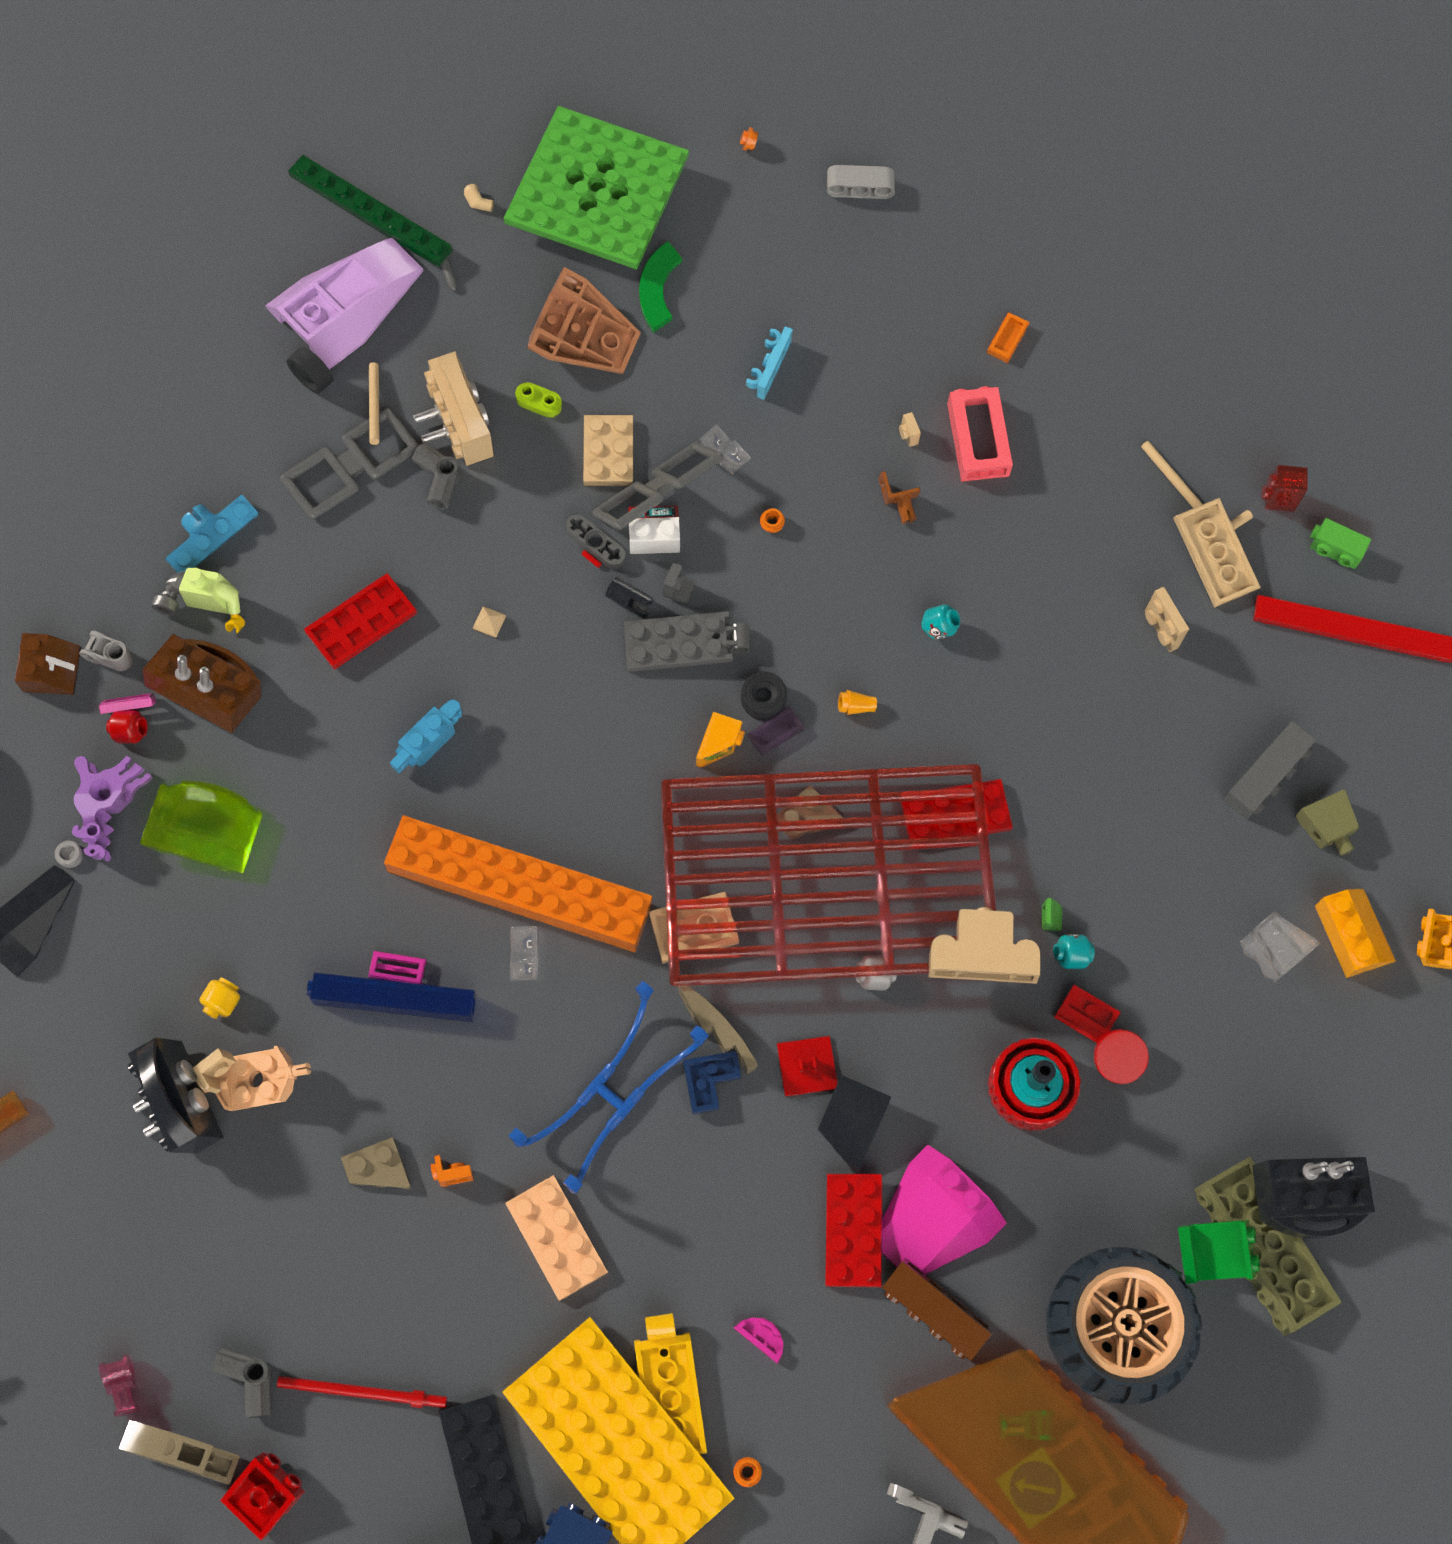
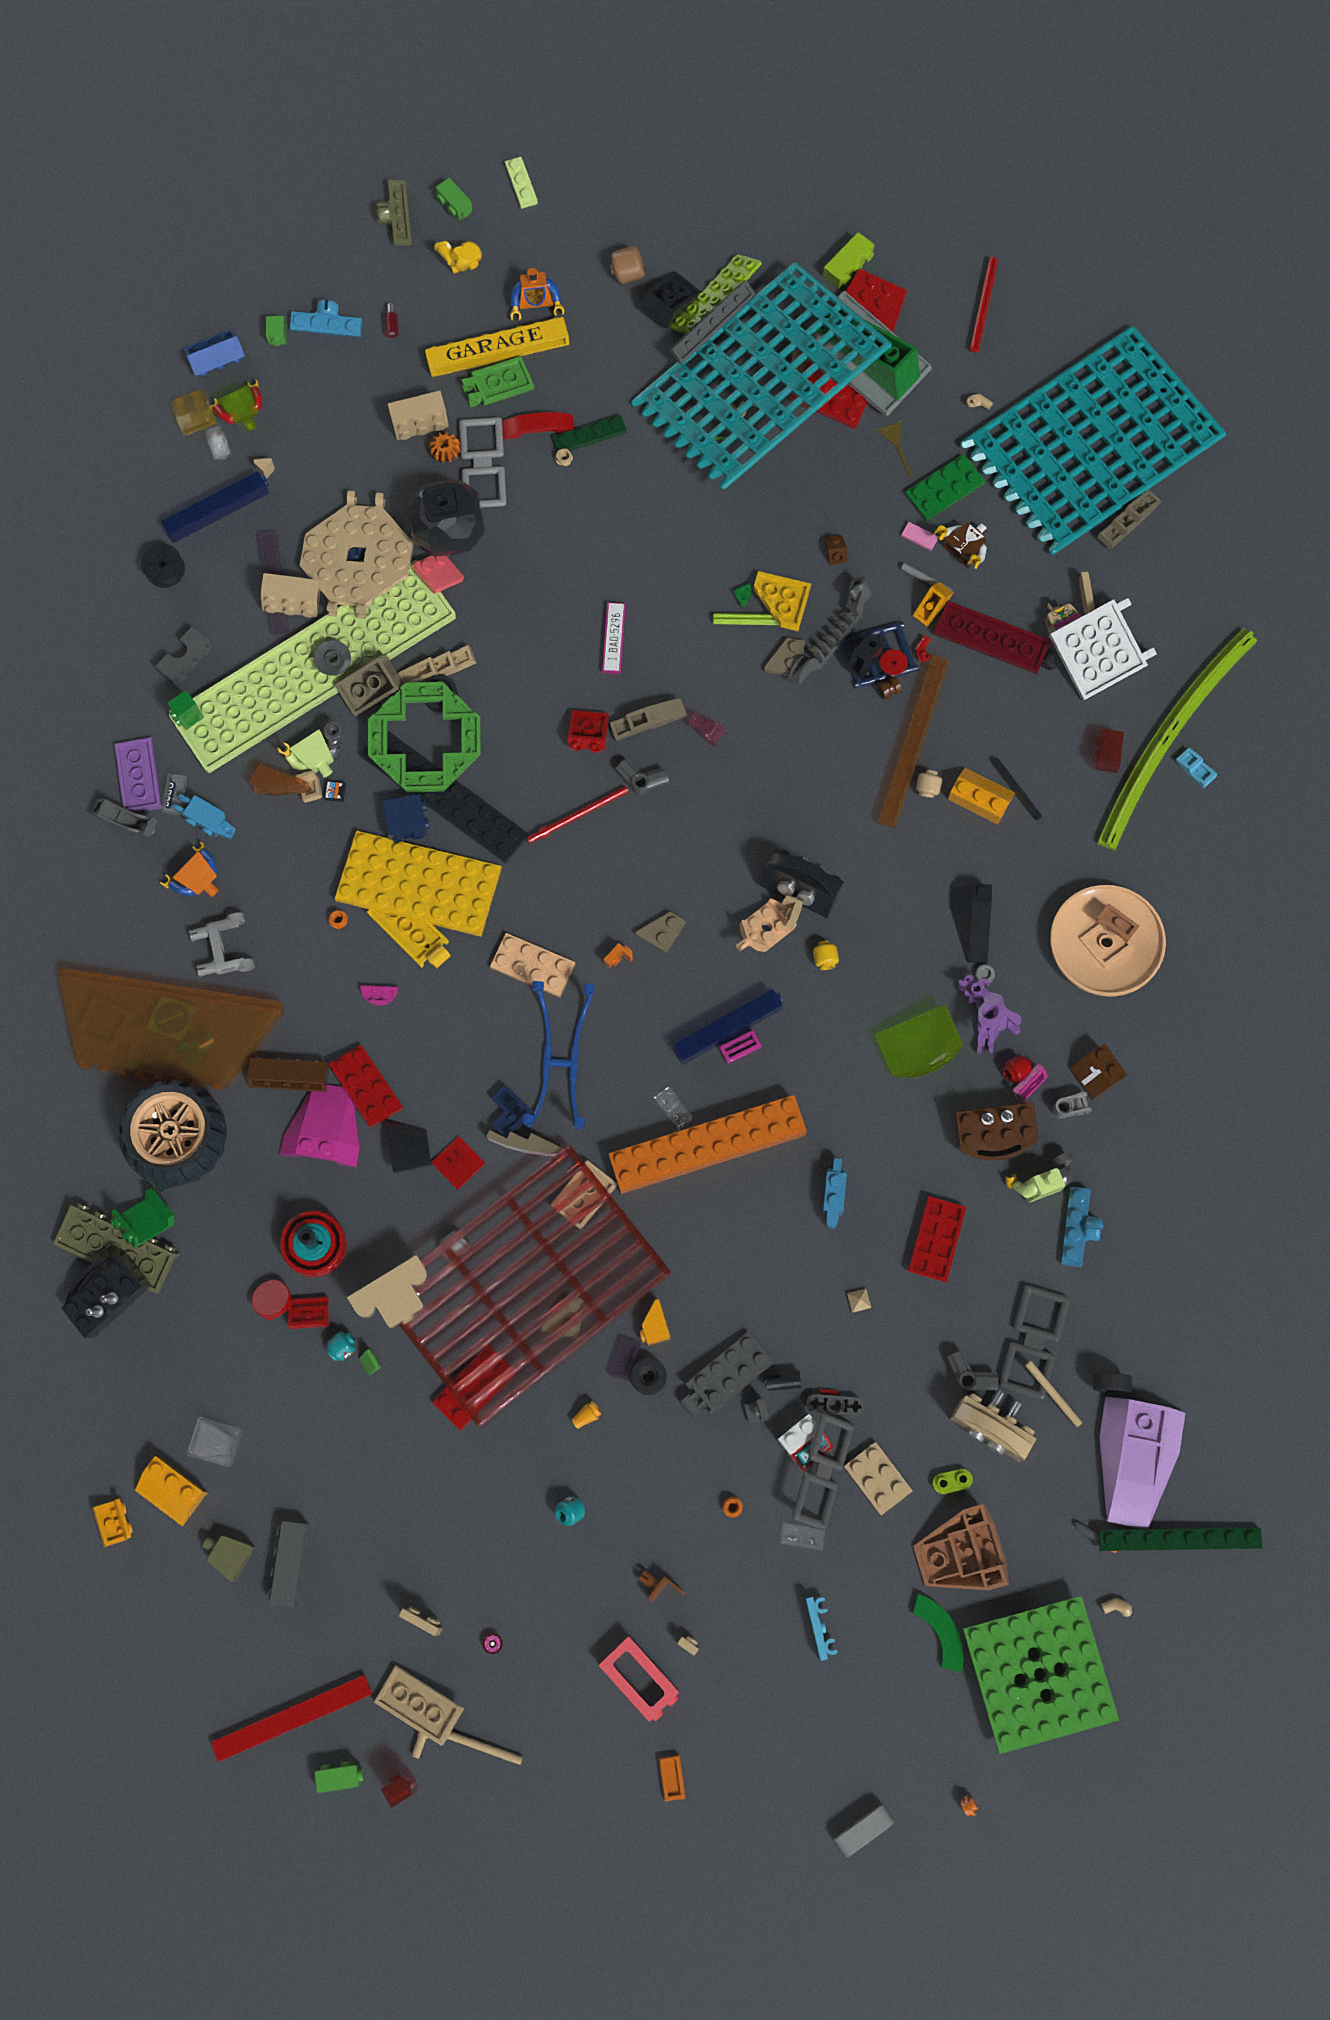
camera: 150 degrees right, 5 degrees up
(1103, 561) = (492, 1643): none -> tile

